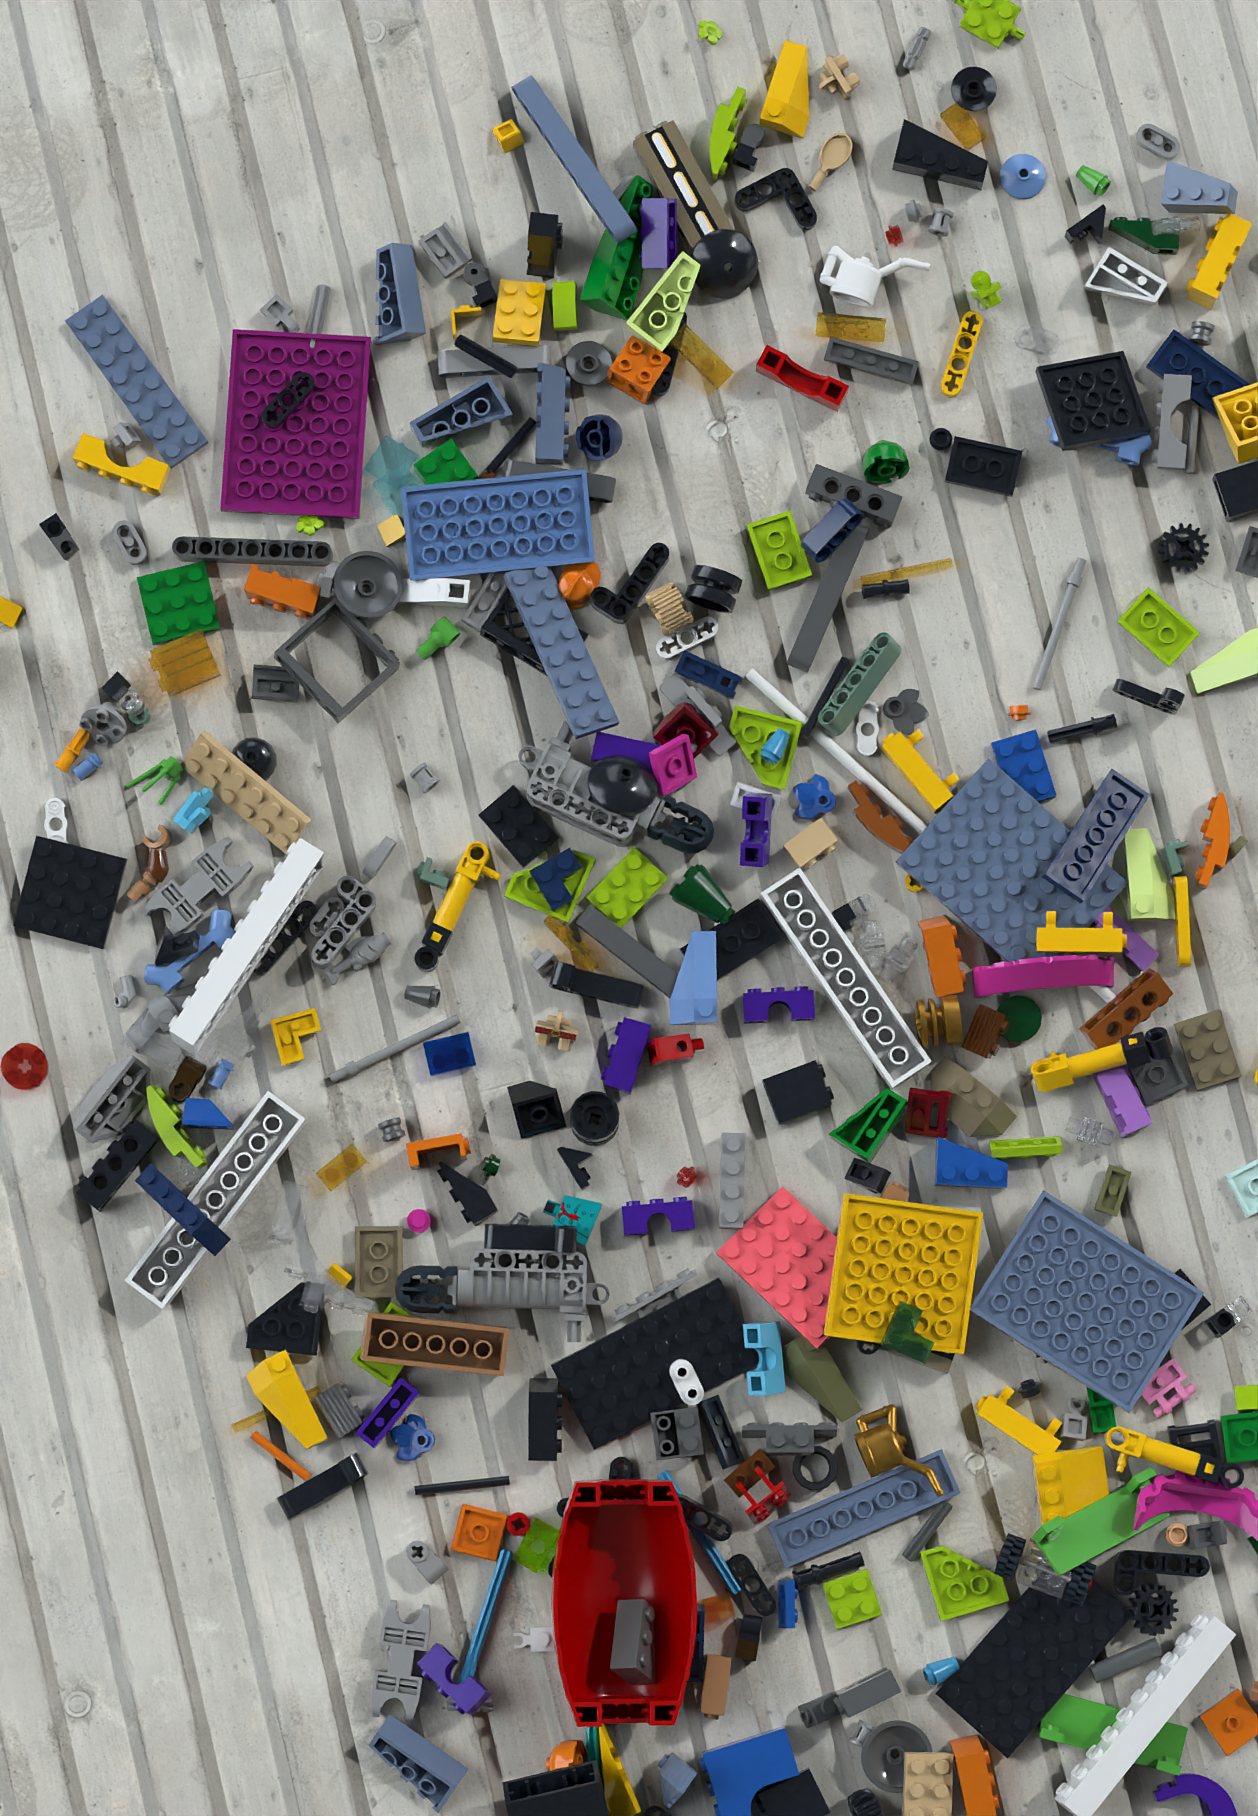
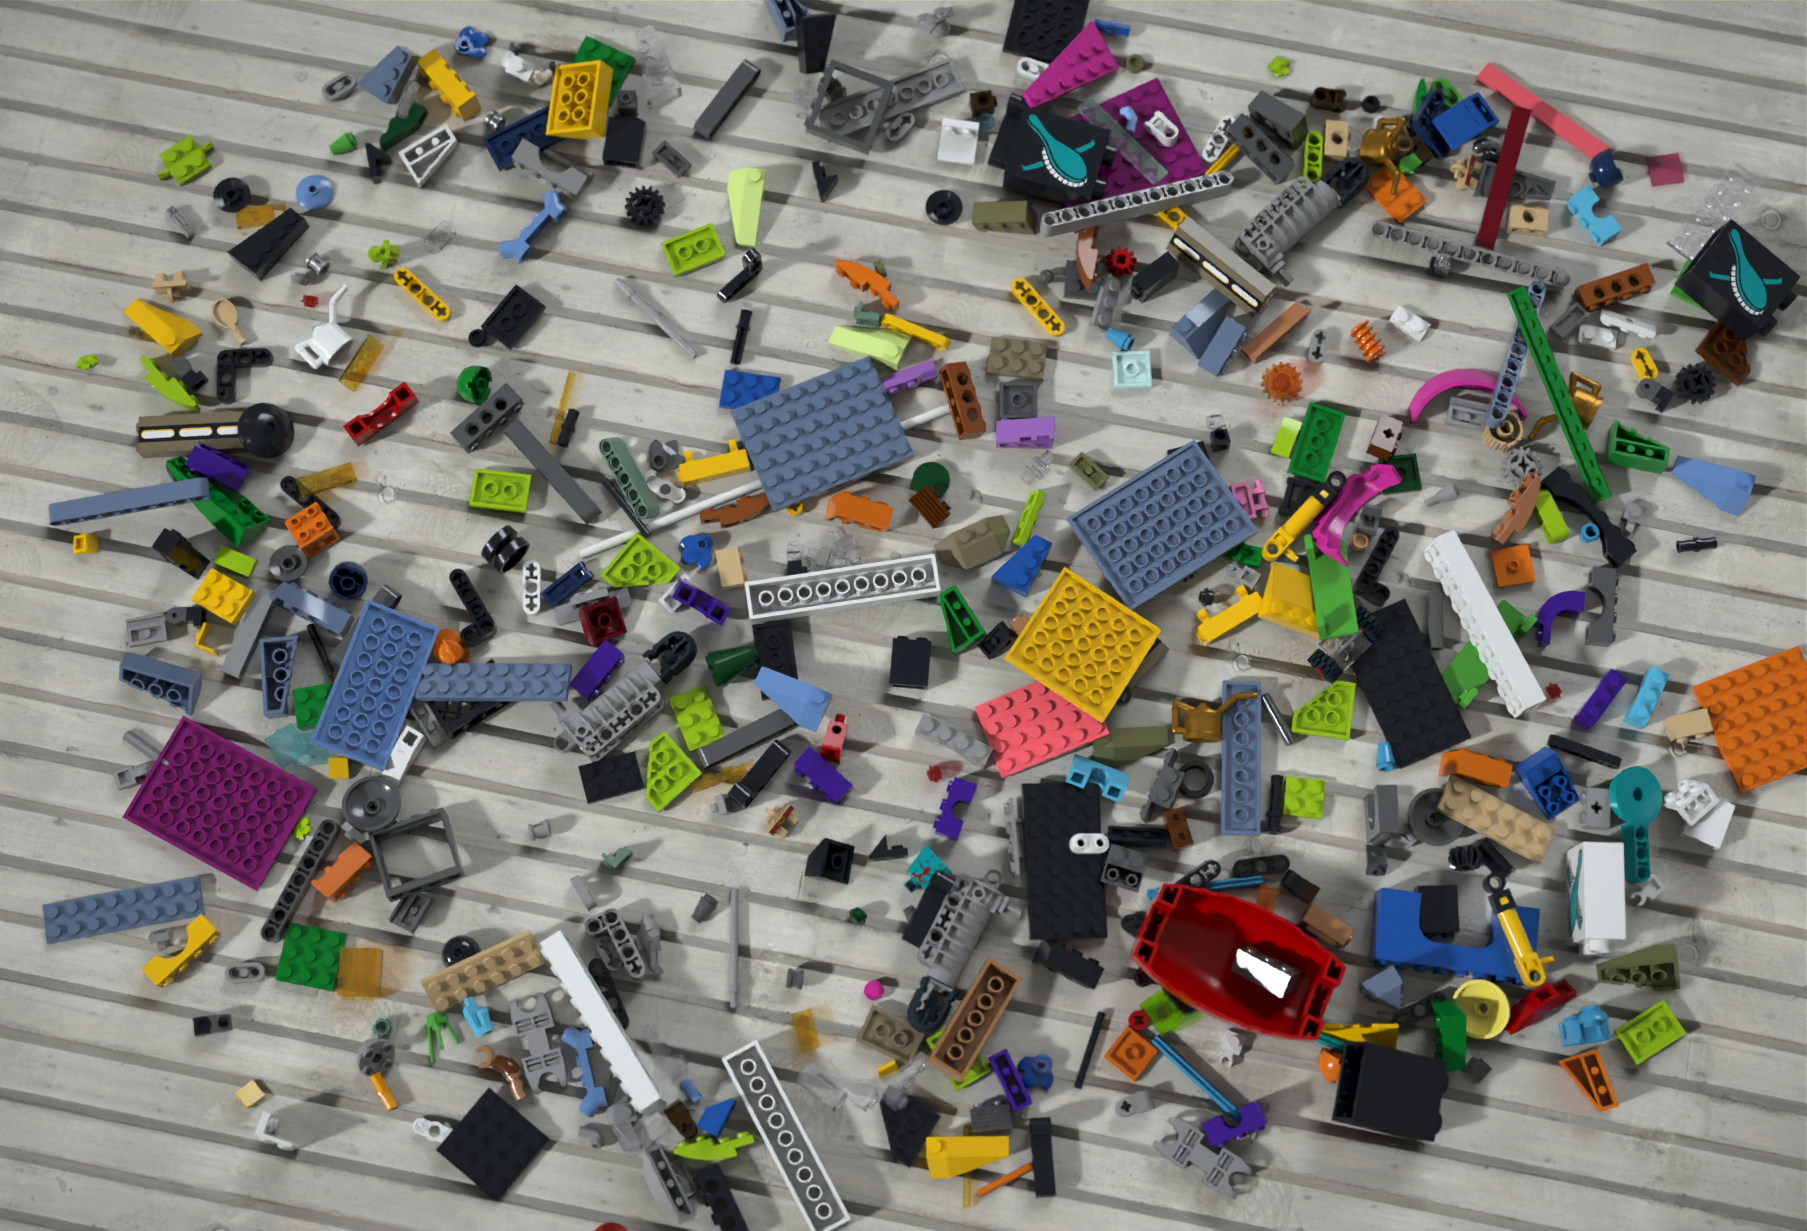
camera: 65 degrees left, 5 degrees down
(88, 766) = (402, 1085): medium blue pin -> none
(118, 690) = (355, 1034): clear leg -> none
(173, 948) = (576, 1080): black slope -> none
(182, 1209) = (782, 1165): dark blue arch -> none
(289, 1029) = (681, 1022): yellow plate -> none
(305, 392) = (199, 814): black beam -> none
(416, 1148) = (819, 967): orange panel -> none
(418, 1761) = (1285, 1179): sand blue wedge -> none
(440, 930) = (646, 852): yellow piece -> none
(442, 634) = (437, 767): bright green pin -> none
(449, 1054) = (758, 908): clear blue plate -> none
(473, 1197) = (876, 940): black slope -> none
(485, 356) = (243, 635): black axle -> none
(550, 876) = (663, 771): dark blue plate -> none
(597, 1105) = (849, 817): black wheel -> none
(618, 792) = (619, 682): black dish -> none
(663, 308) = (279, 492): yellowish green wedge -> none
(669, 608) = (503, 588): tan brick -> none
(673, 764) = (622, 639): dark pink plate -> none
(775, 747) = (646, 559): dark azure cone -> none
(777, 1497) = (1206, 816): red plate -> none
(786, 1604) = (1286, 846): blue plate -> none
(799, 1002) = (843, 631): dark purple arch -> none
(832, 530) = (505, 443): dark blue beam -> none
(871, 360) = (393, 360): dark grey plate -> none
(900, 1334) = (1129, 666): clear green plate -> none
(919, 1112) = (966, 580): dark red plate -> none
(939, 1021) = (907, 535): pearl gold wheel -> none
(1019, 712) = (706, 375): orange plate -> none
(1043, 973) = (907, 447): dark pink windscreen -> none
(1080, 939) = (896, 405): yellow brick -> none
(1093, 400) = (505, 216): black plate -> none
(1096, 836) = (825, 361): dark blue plate -> none
(1133, 1050) = (995, 405): yellow piece -> none
(1160, 1613) = (1407, 583): black gear -> none

